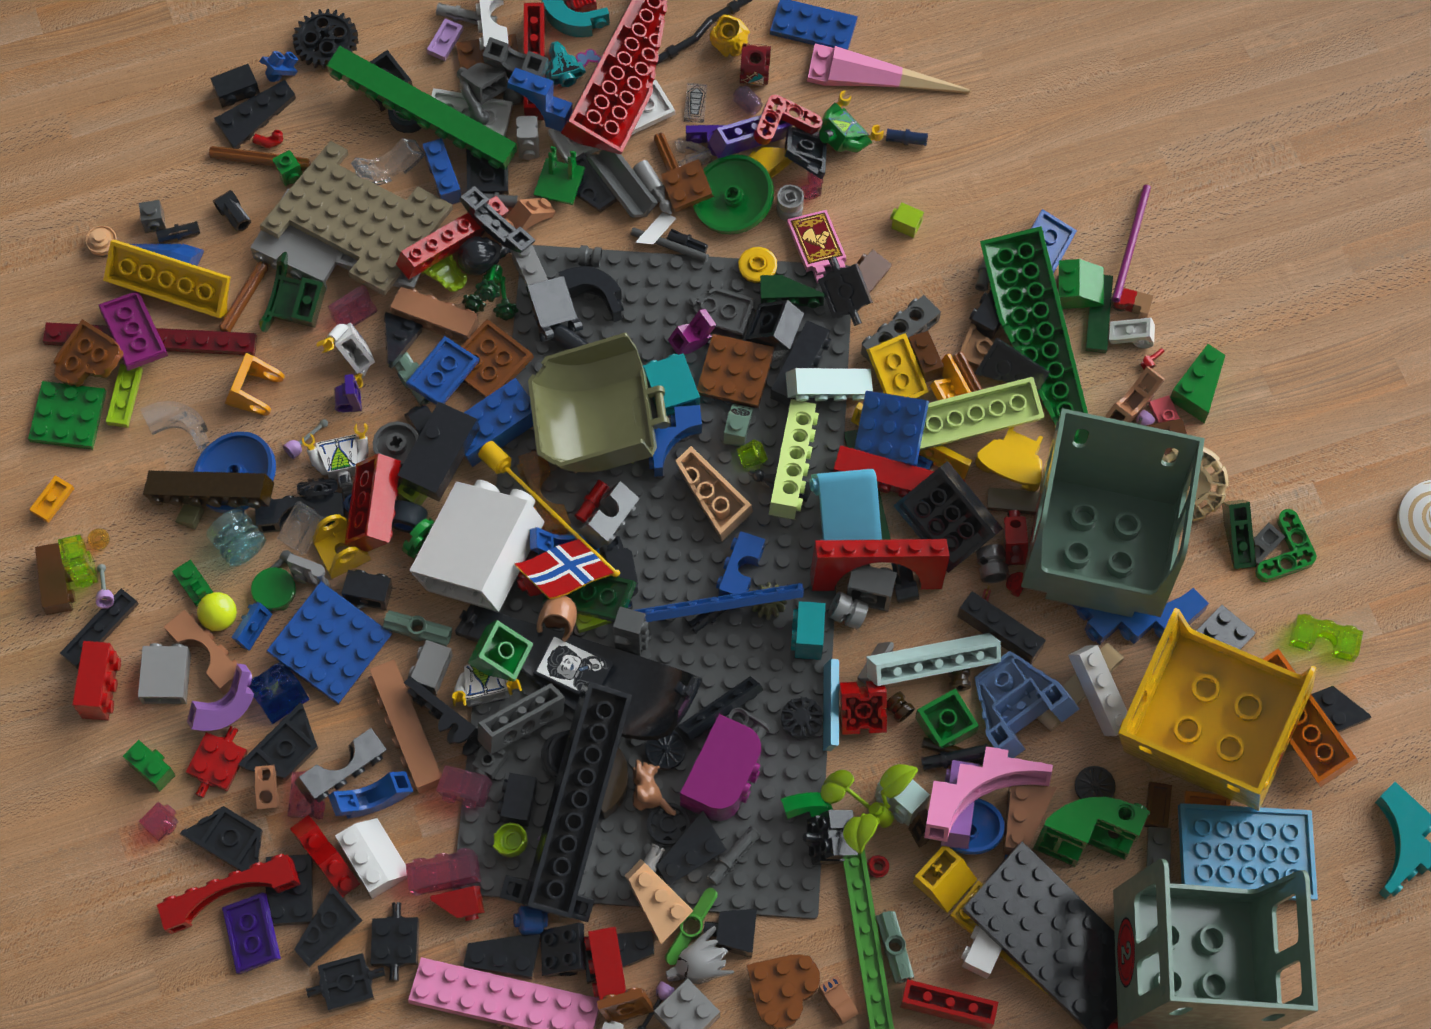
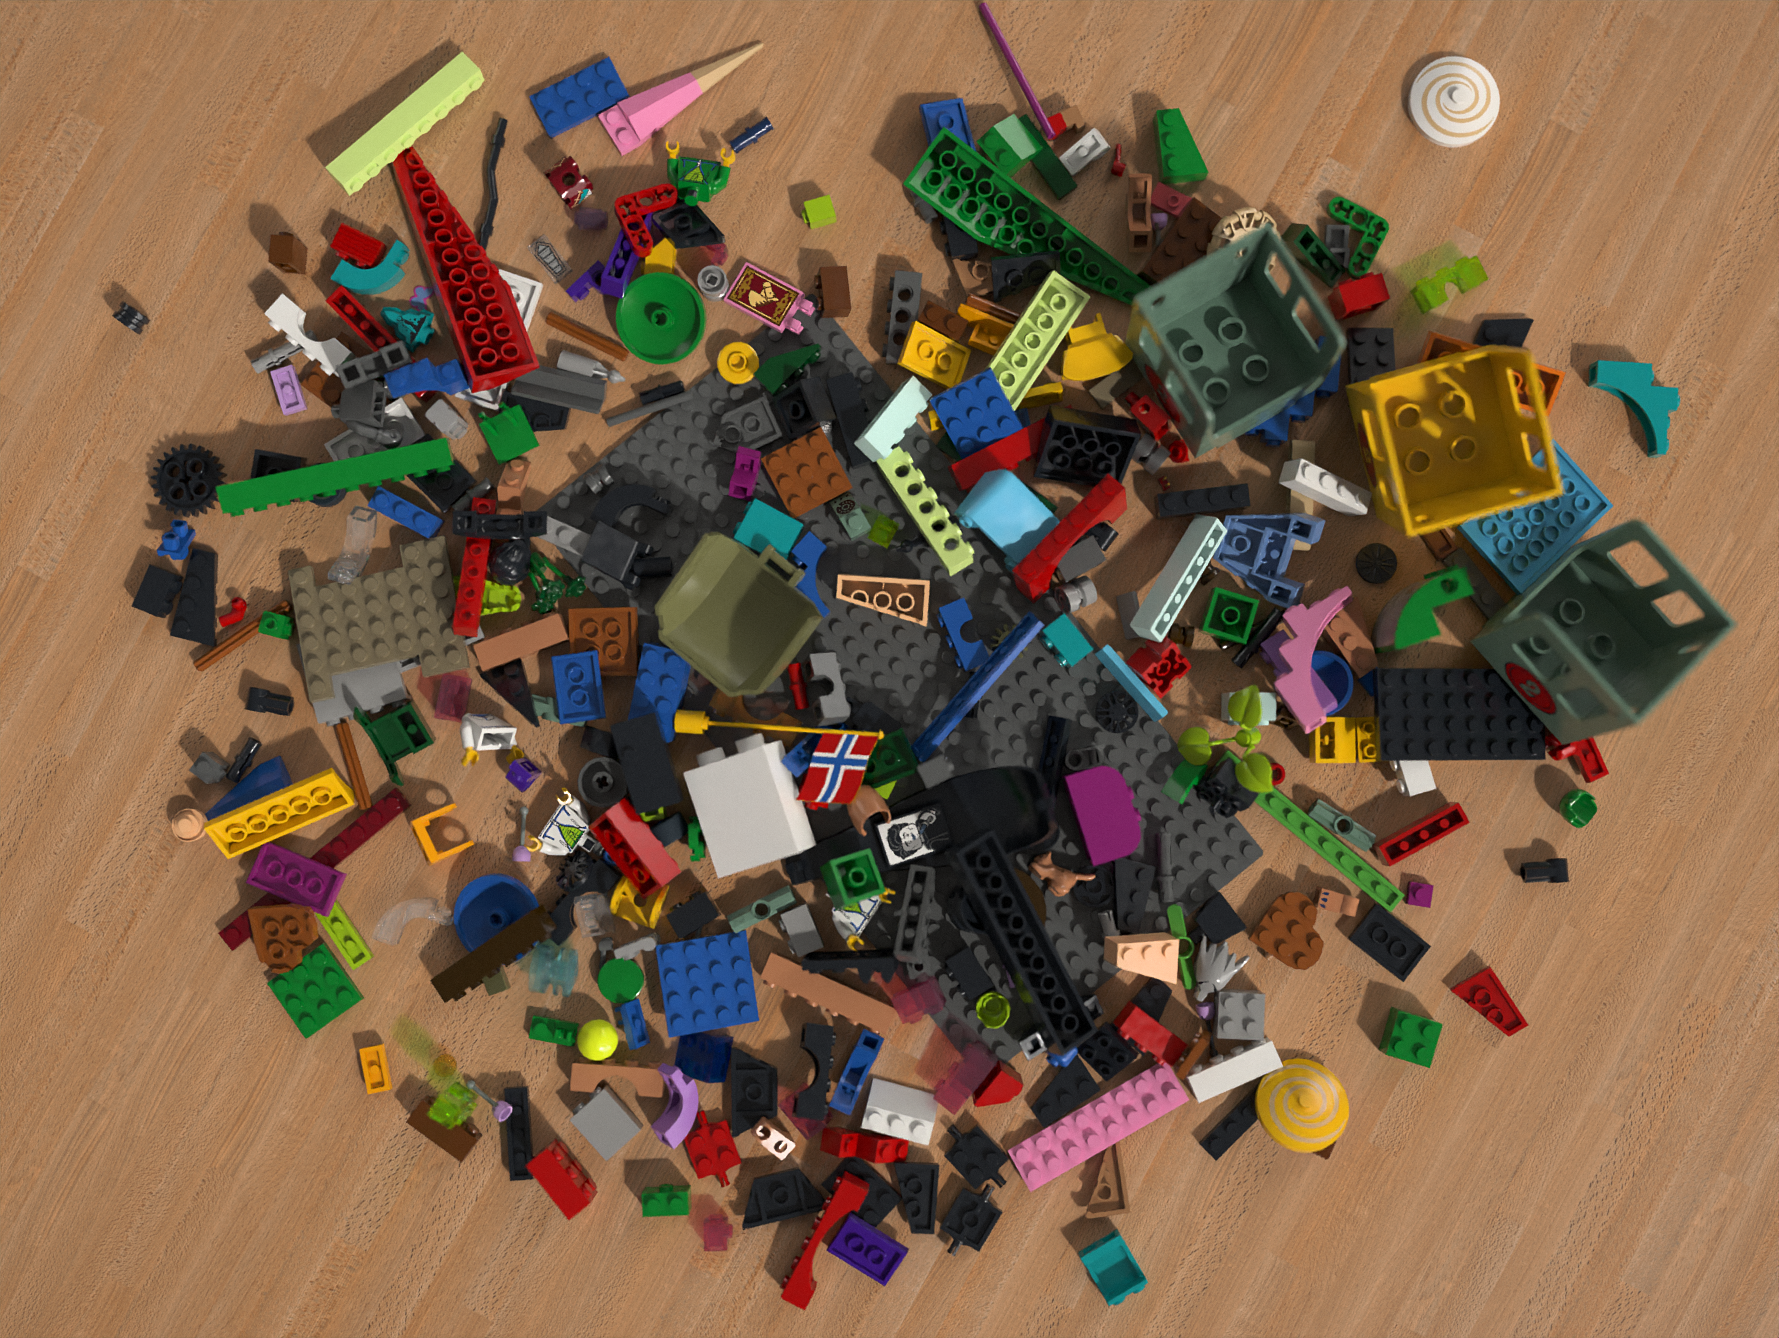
camera: 45 degrees left, 20 degrees up
(656, 229) = (626, 404): white sticker -> none
(687, 185) = (616, 344): dark orange plate -> none
(701, 153) = (599, 311): clear plant -> none
(729, 35) = (522, 172): yellow hair -> none
(845, 290) = (832, 325): black plate -> none
(1246, 585) = (1358, 296): none -> red brick

